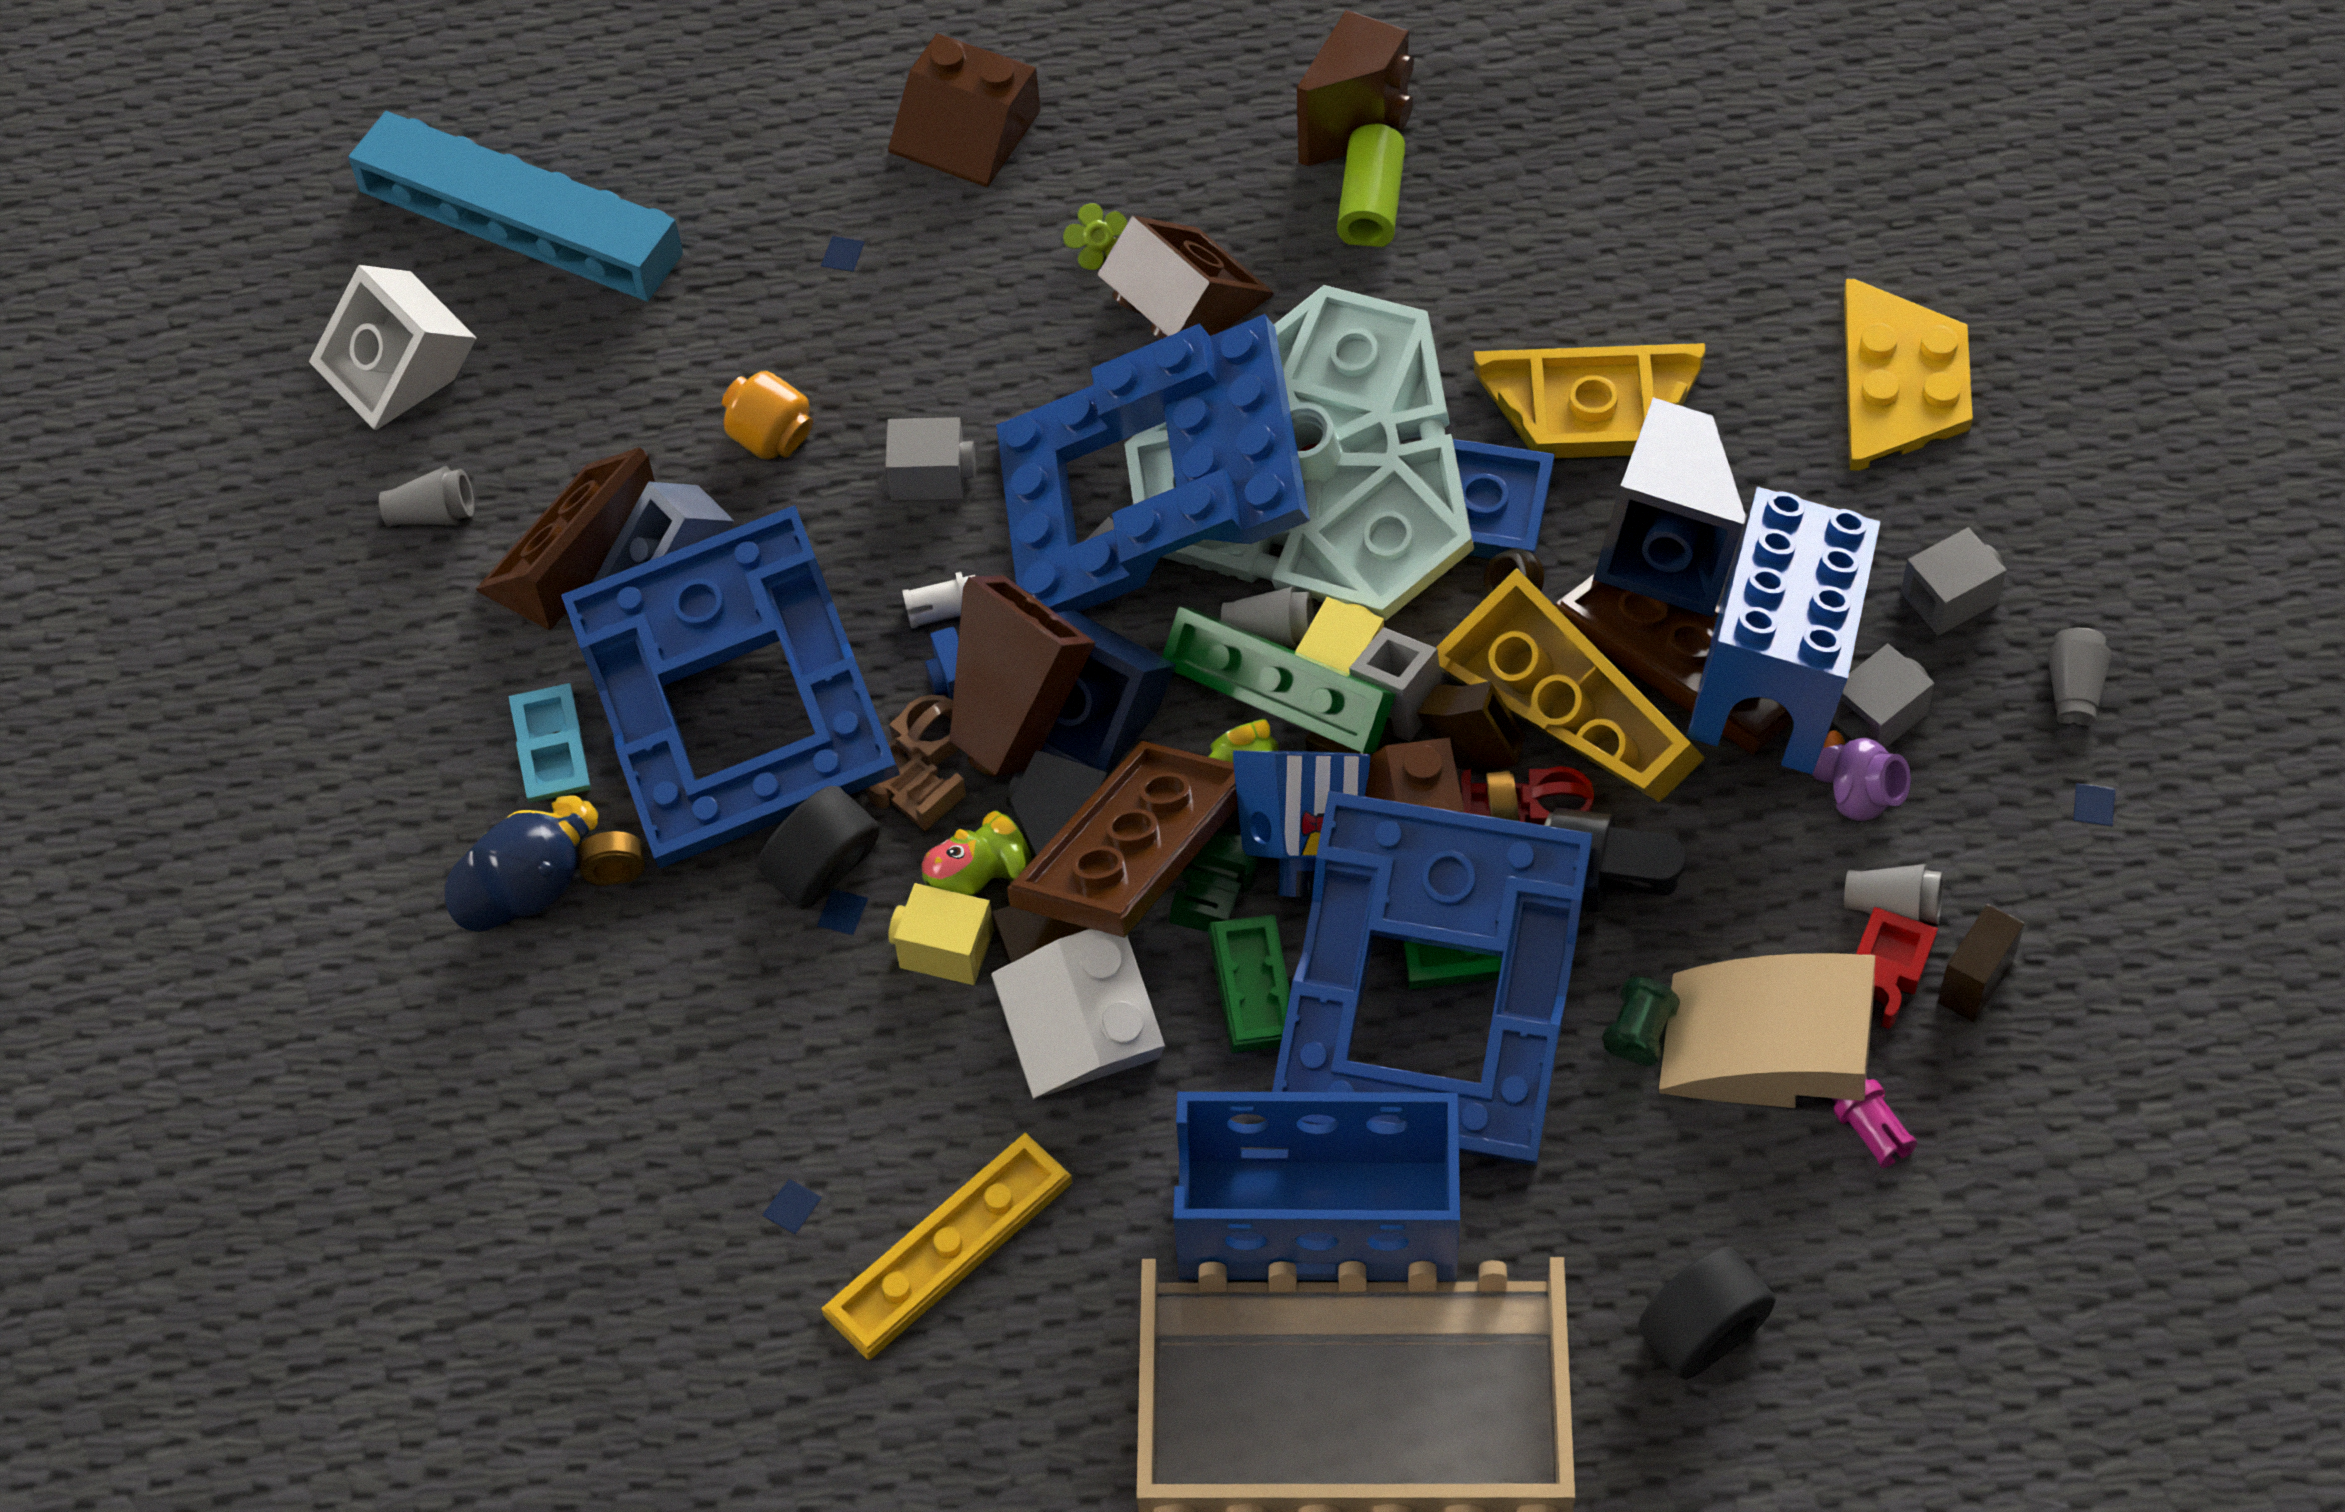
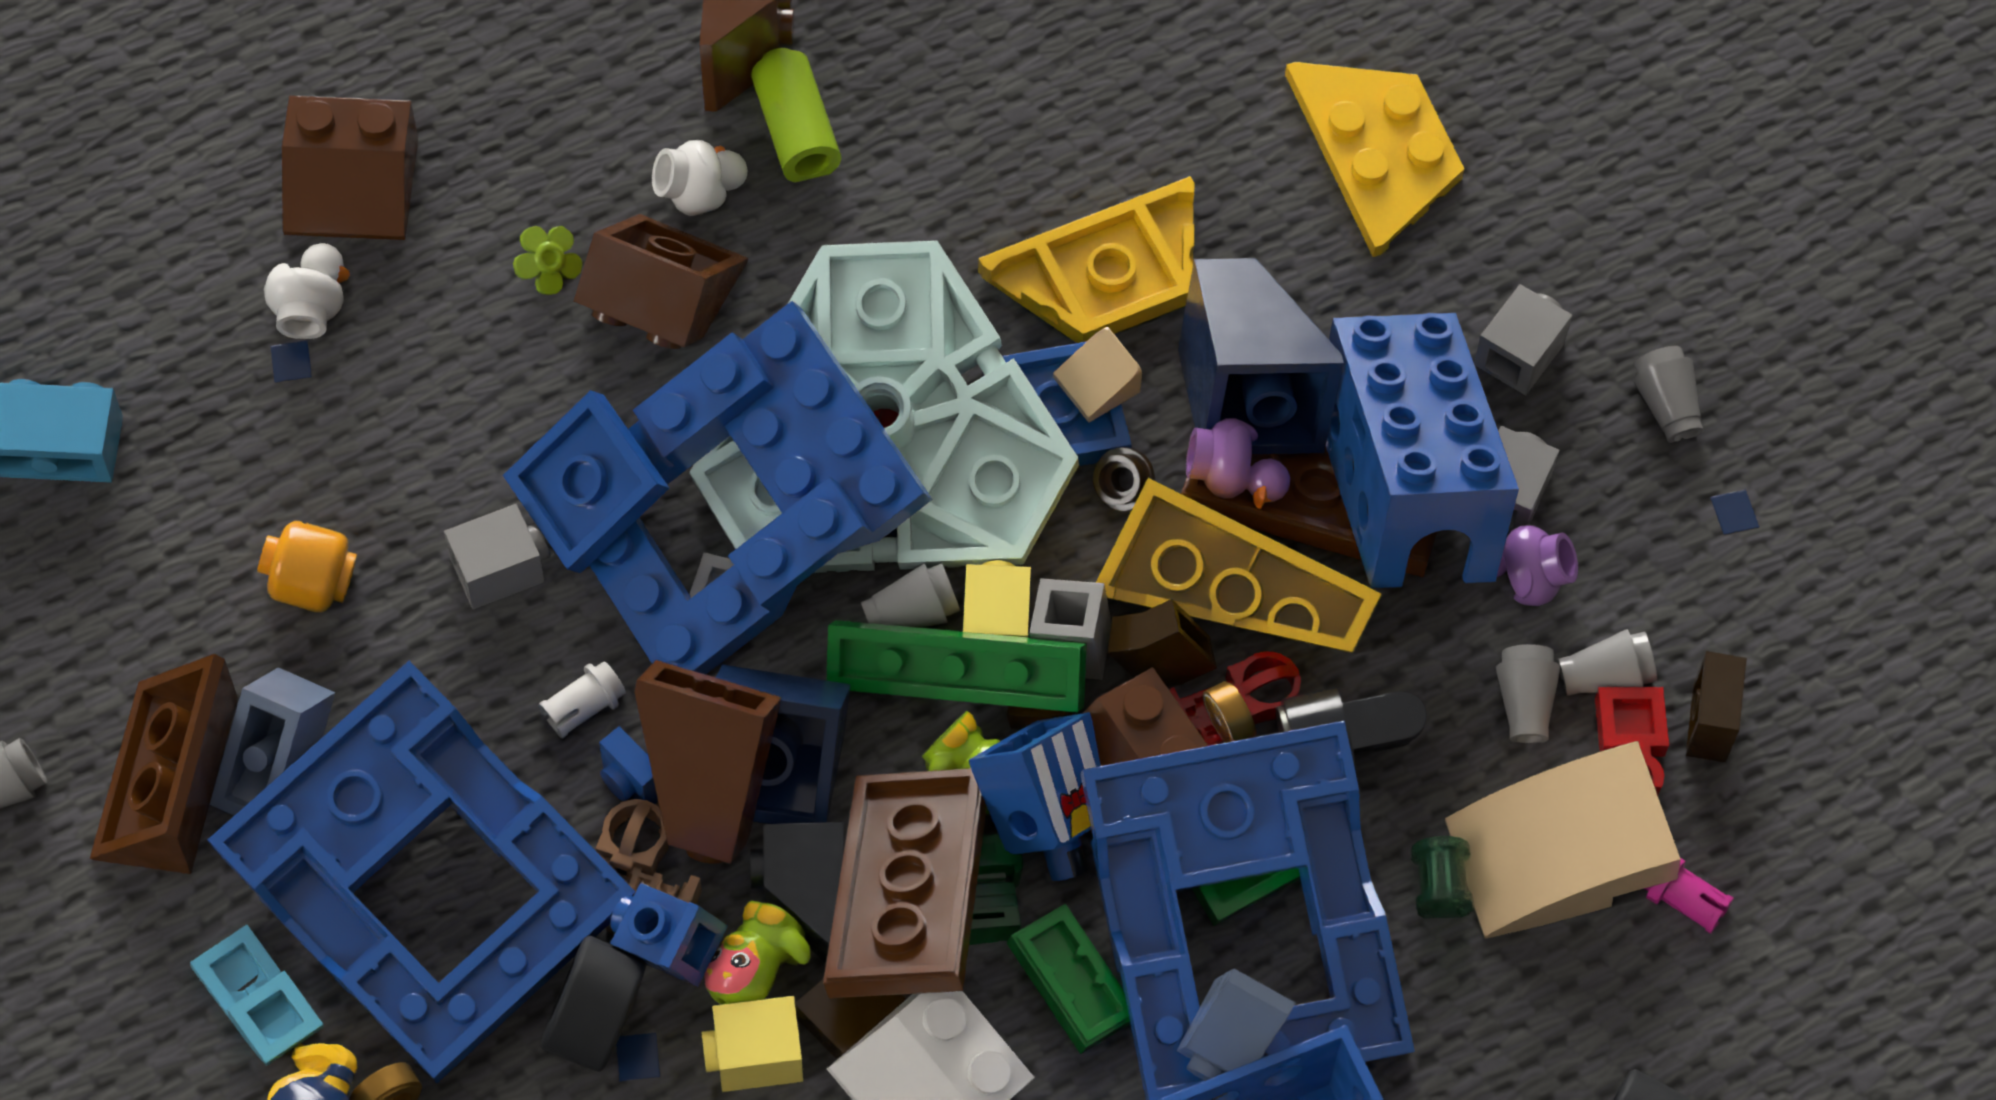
camera: 30 degrees left, 5 degrees up
(880, 202) = (309, 294): none -> white animal
(893, 795) = (667, 933): none -> blue brick
(1025, 417) = (585, 481): none -> blue plate
(1259, 211) = (697, 176): none -> white animal
(1362, 1056) = (1233, 1025): none -> sand blue slope
(1530, 480) = (1099, 375): none -> tan slope
(1603, 586) = (1224, 462): none -> medium lavender animal
(1806, 887) = (1528, 690): none -> light grey cone

